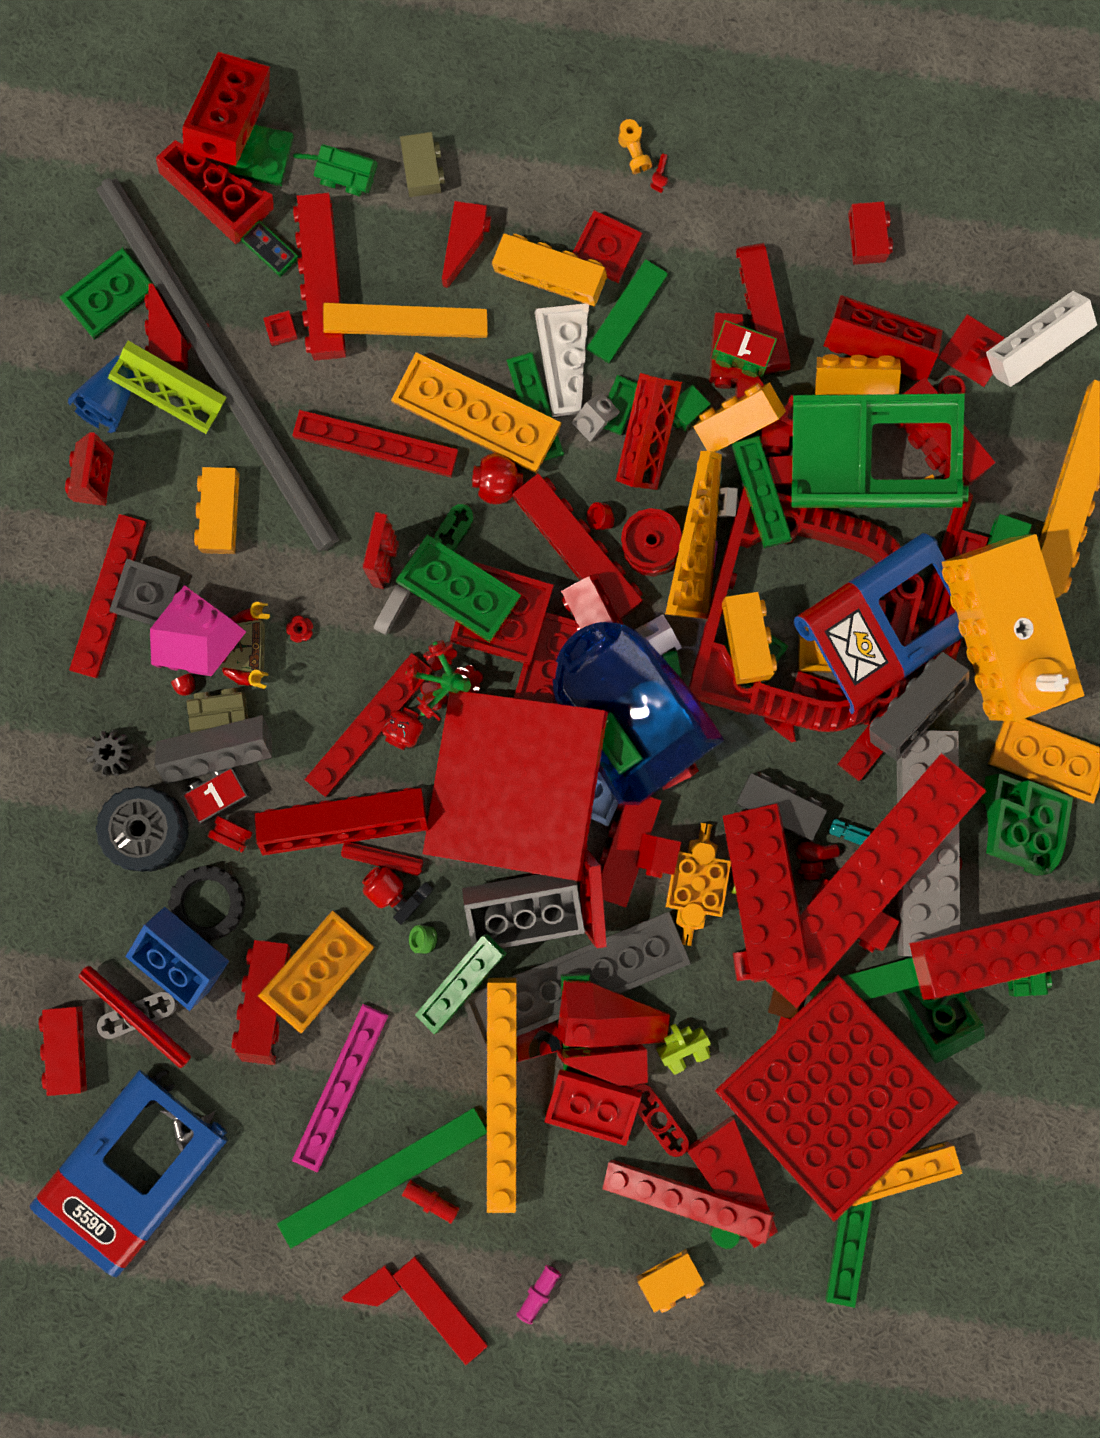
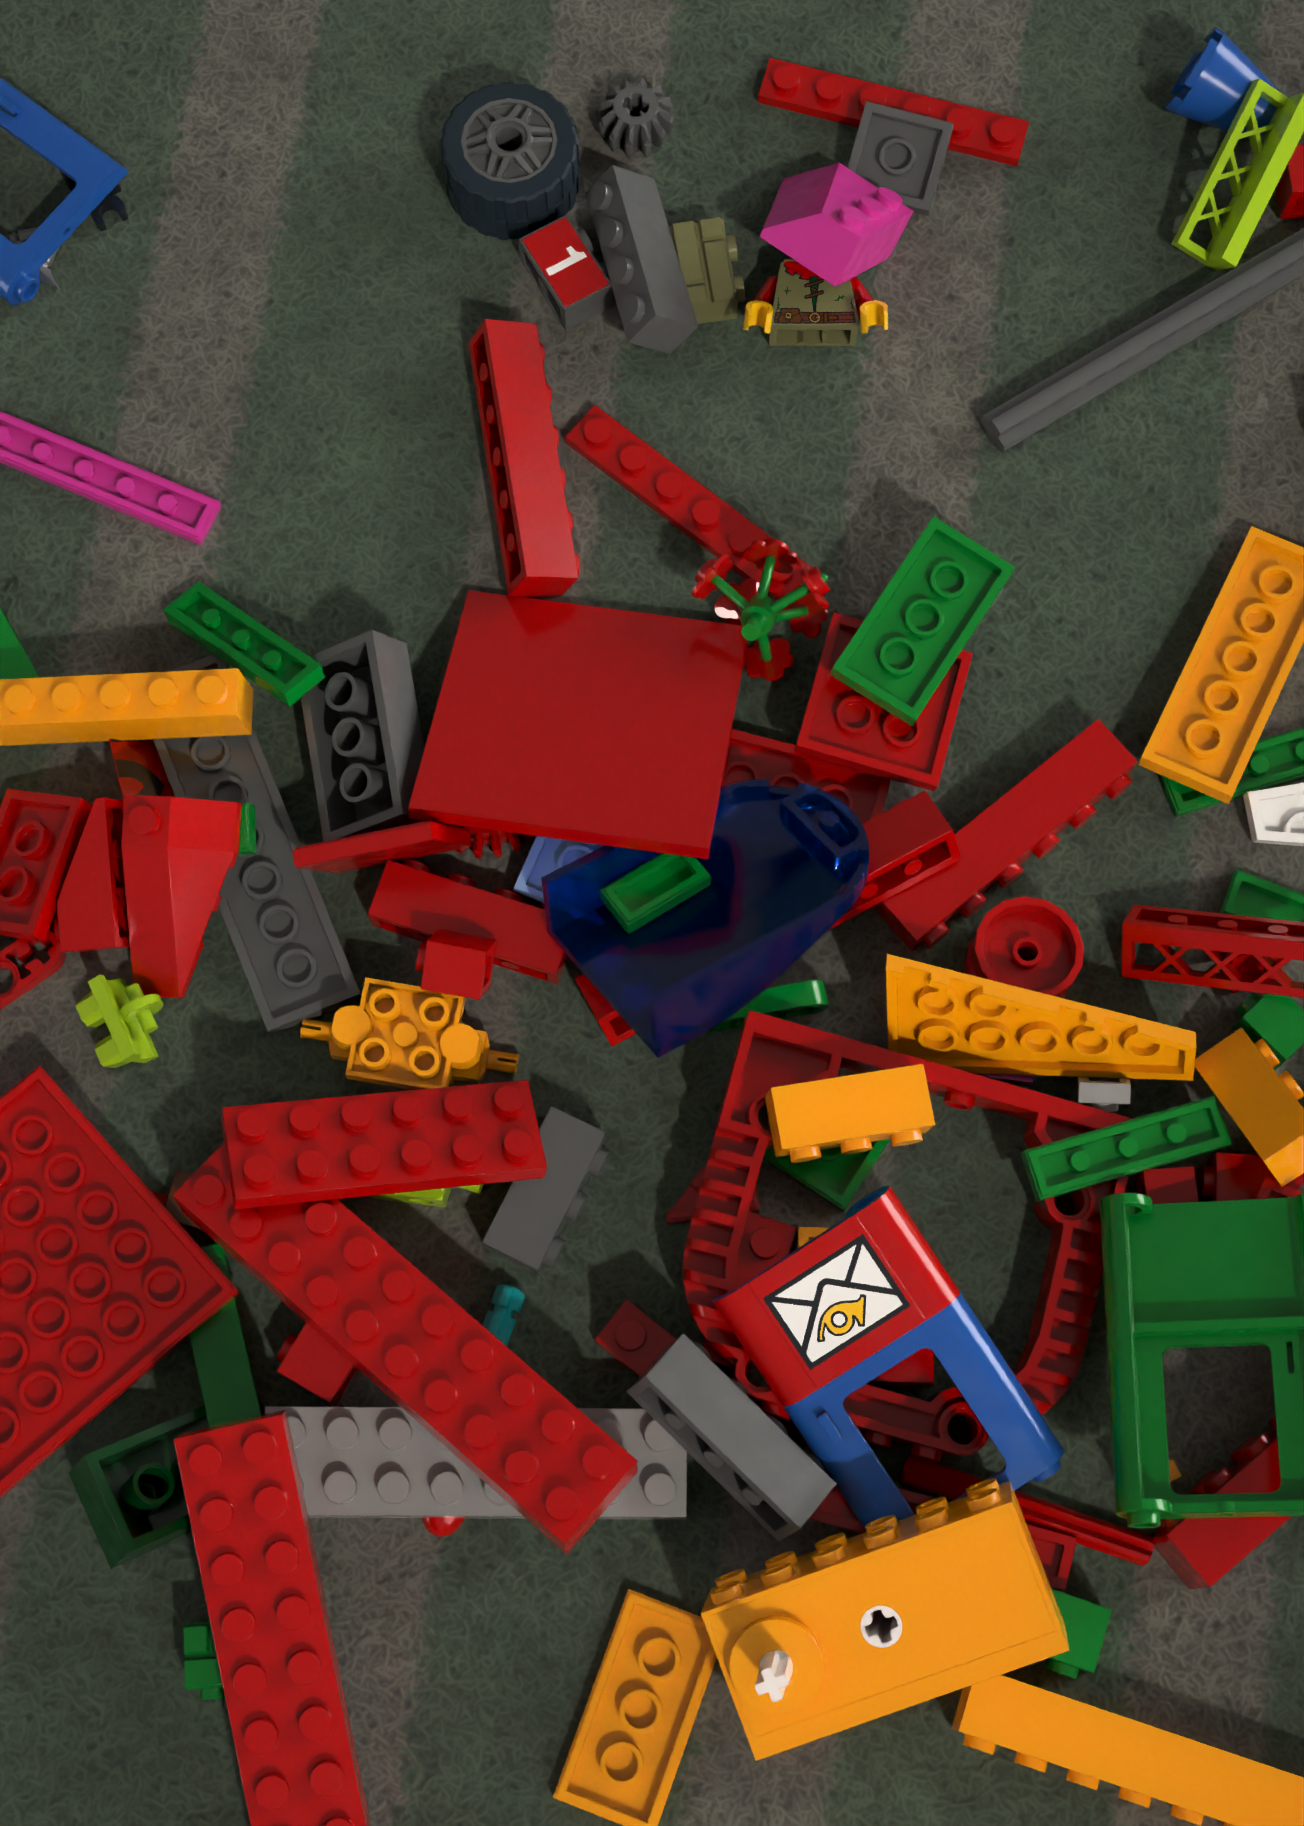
camera: 90 degrees right, 10 degrees down
(63, 1050) = (163, 66): red brick -> none
(90, 471) = (1096, 67): red slope -> none
(134, 1016) = (210, 160): red axle -> none
(159, 1014) = (217, 154): light grey beam -> none
(177, 958) = (300, 212): blue brick -> none
(184, 684) = (748, 222): red hinge -> none
(217, 510) = (1042, 264): light orange brick -> none
(224, 878) = (383, 223): black tyre -> none
(230, 834) = (502, 289): red wheel -> none
(257, 1019) = (224, 342): red wedge -> none
(305, 634) = (847, 405): red plate -> none
(316, 971) = (272, 419): light orange tile -> none
(375, 443) = (1172, 507): red plate -> none
(380, 548) = (982, 485): red plate -> none
(382, 858) = (461, 529): red axle -> none
(383, 887) = (411, 526): red head -> none
(391, 609) = (880, 531): light grey beam -> none
(402, 728) = (678, 551): red head -> none
(406, 907) = (378, 567): black plate -> none
(422, 939) = (323, 589): bright green tile -> none
(448, 525) = (1026, 643): green beam -> none
(496, 478) = (1124, 697): red plant -> none
(595, 416) = (1250, 862): light grey bracket -> none
(600, 516) = (1067, 874): red tile -> none
(660, 635) = (849, 970): white brick -> none
(811, 869) = (429, 1250): red plate -> none
(815, 852) = (462, 1257): red arm -> none
(1026, 823) = (511, 1653): green slope -> none

